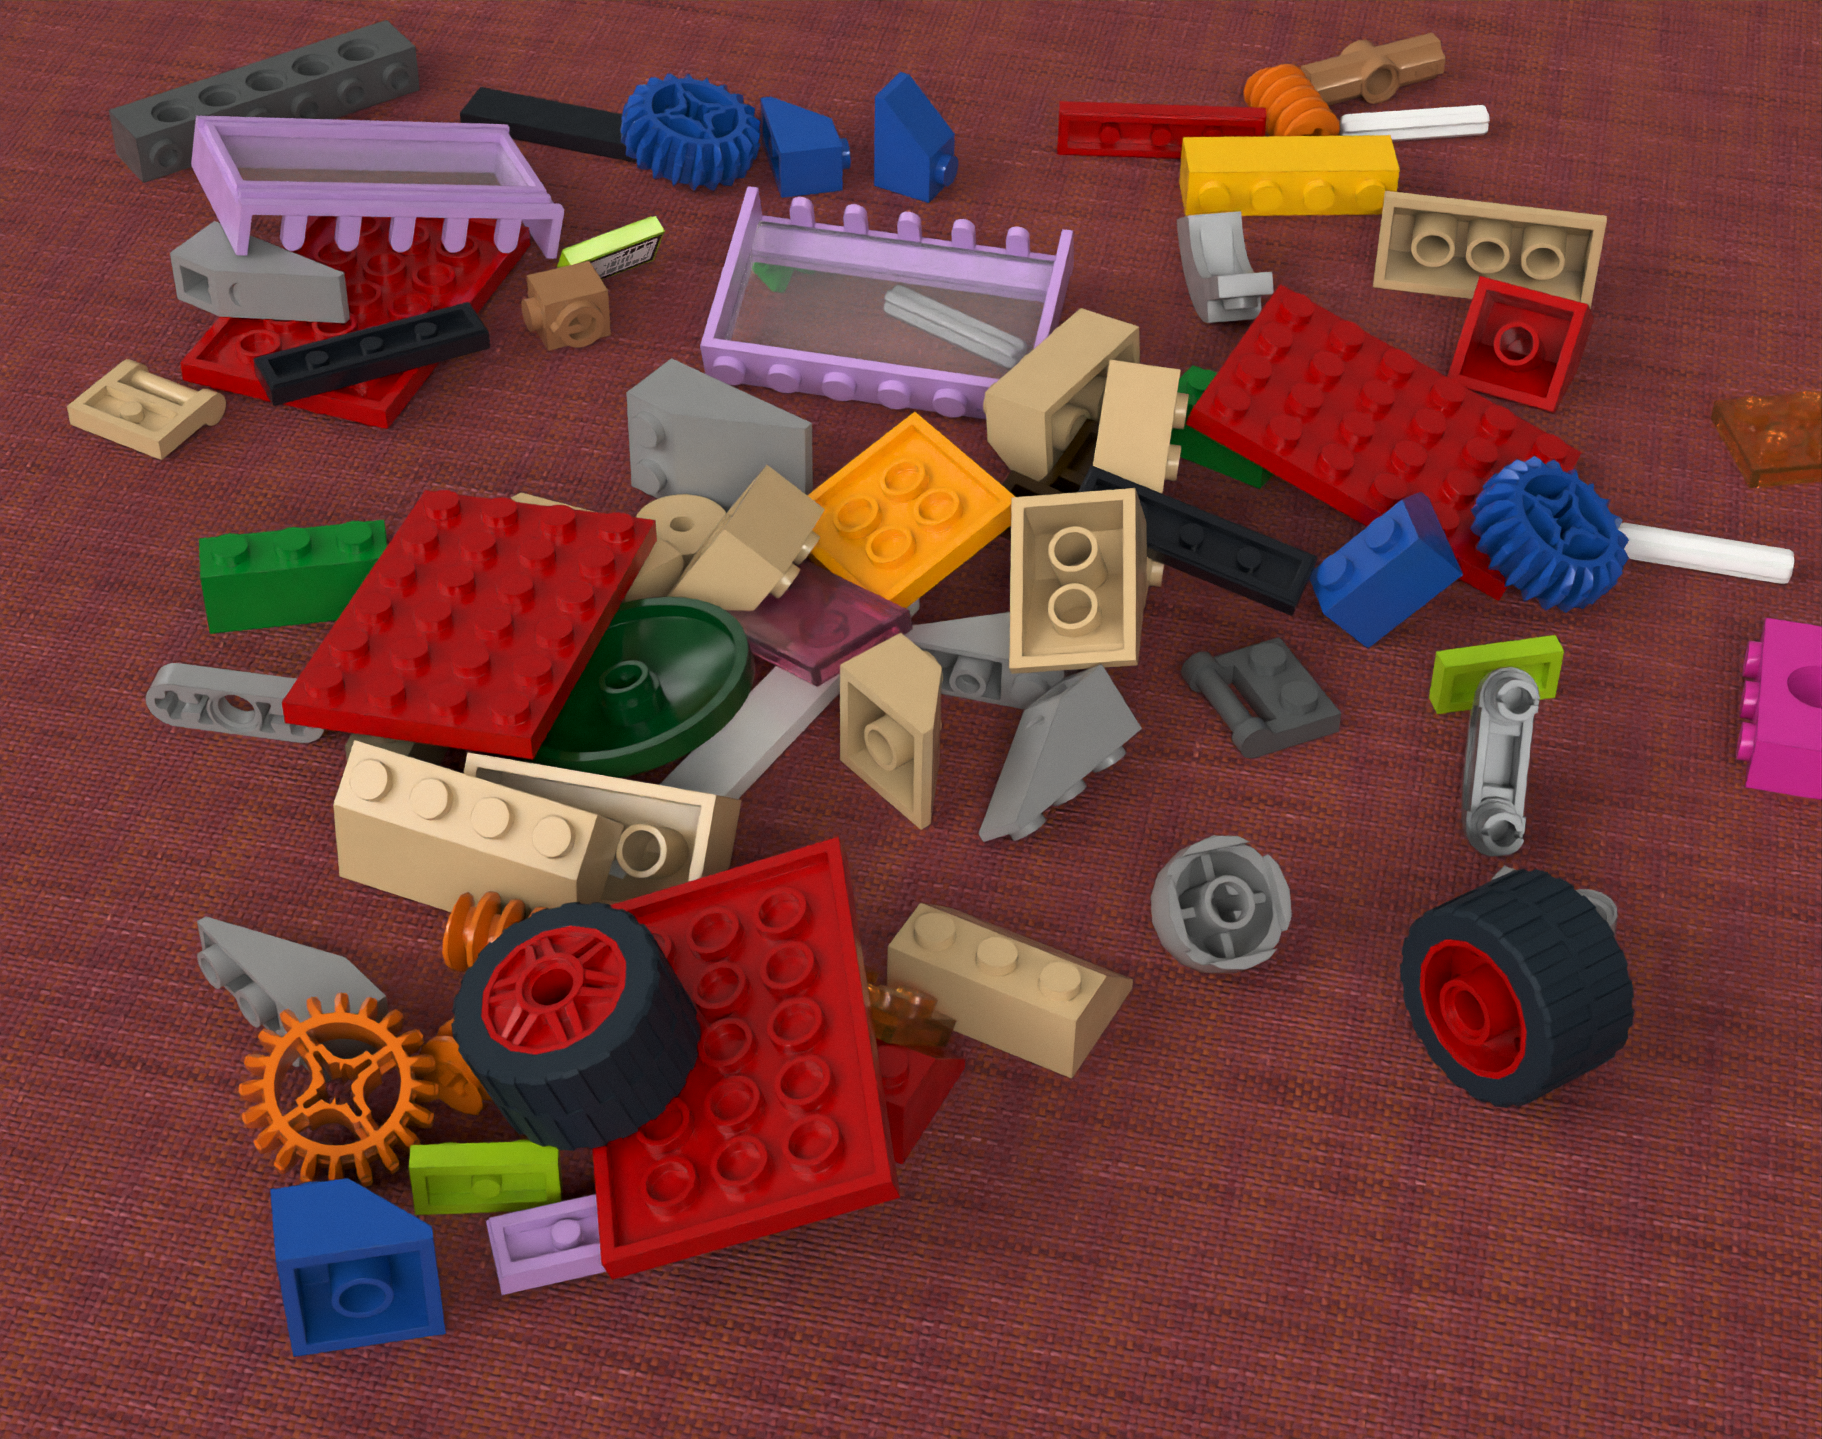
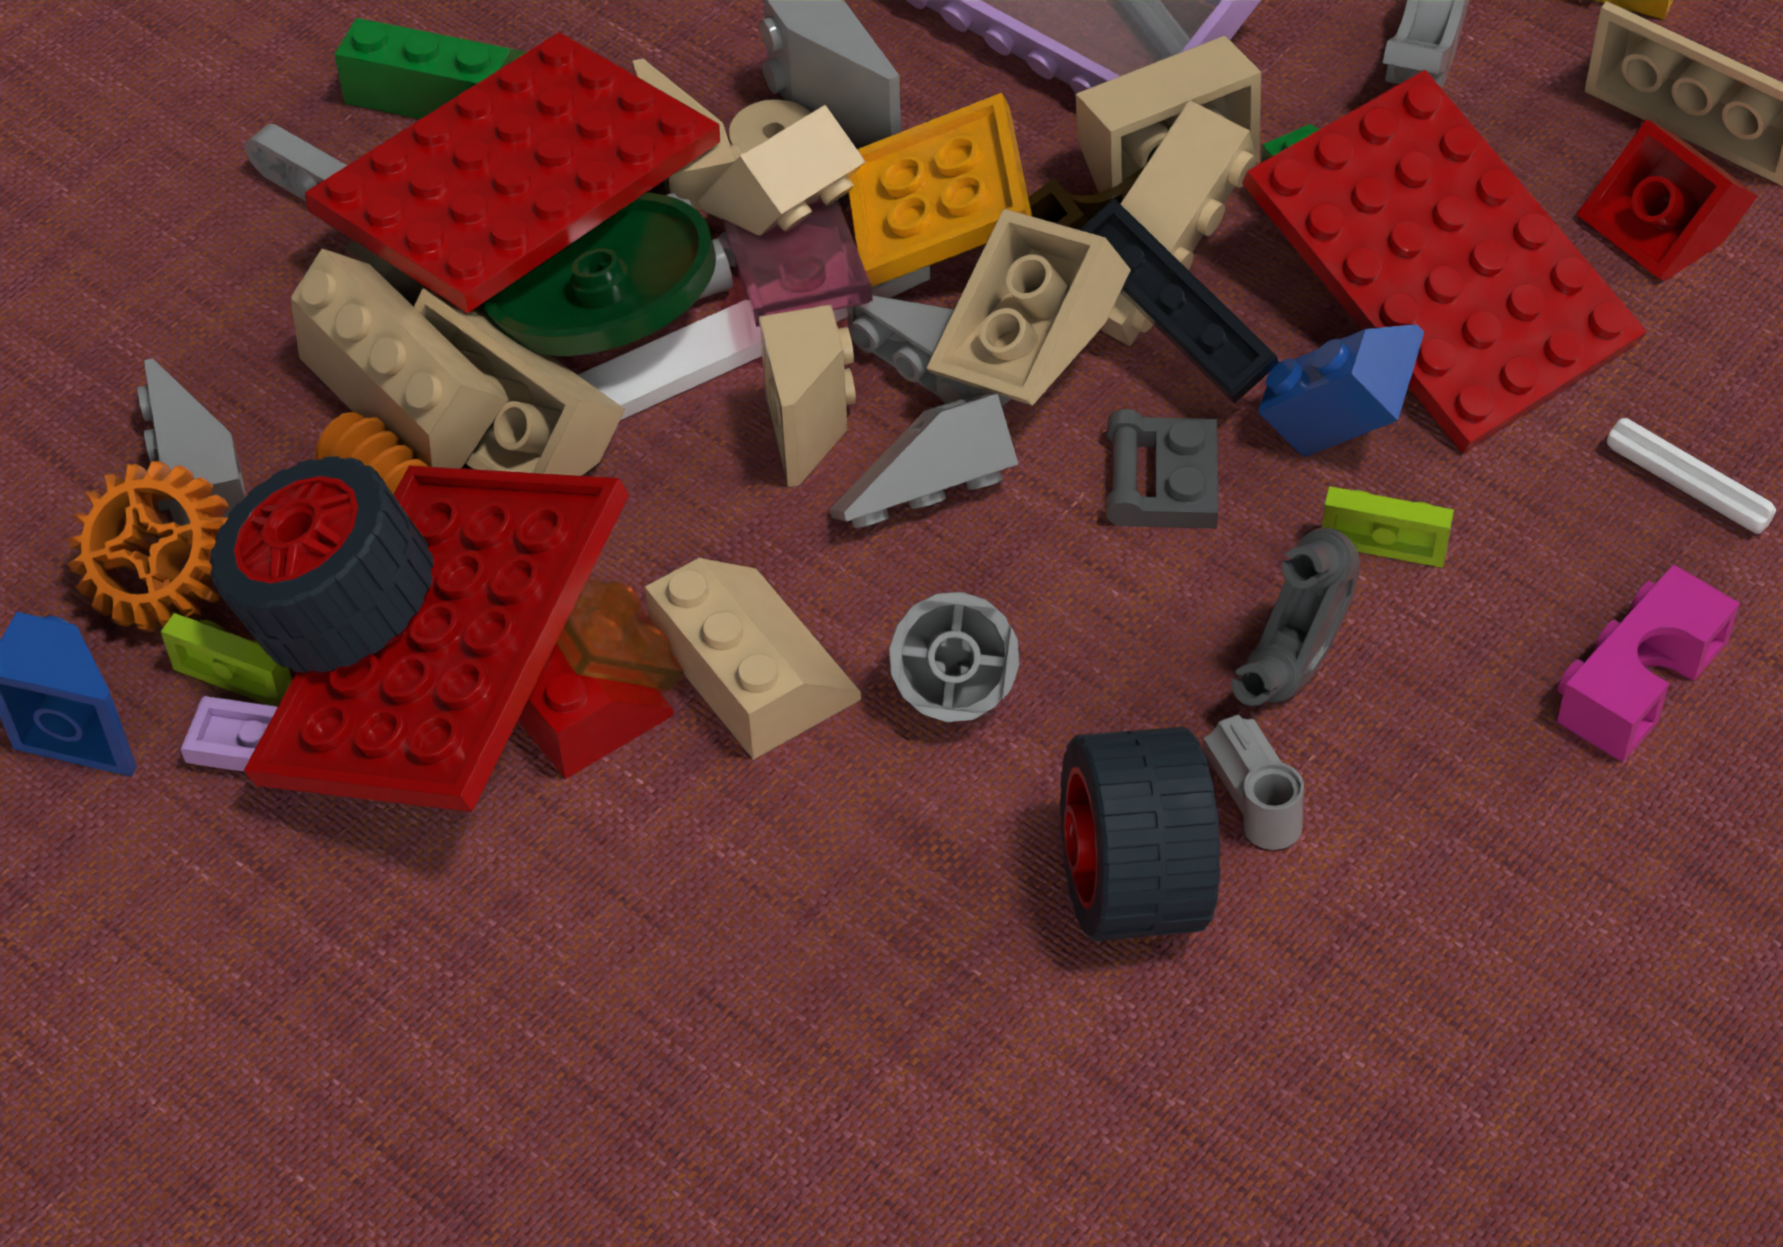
camera: 30 degrees right, 10 degrees up
(1549, 534) = (1494, 392): blue gear -> none

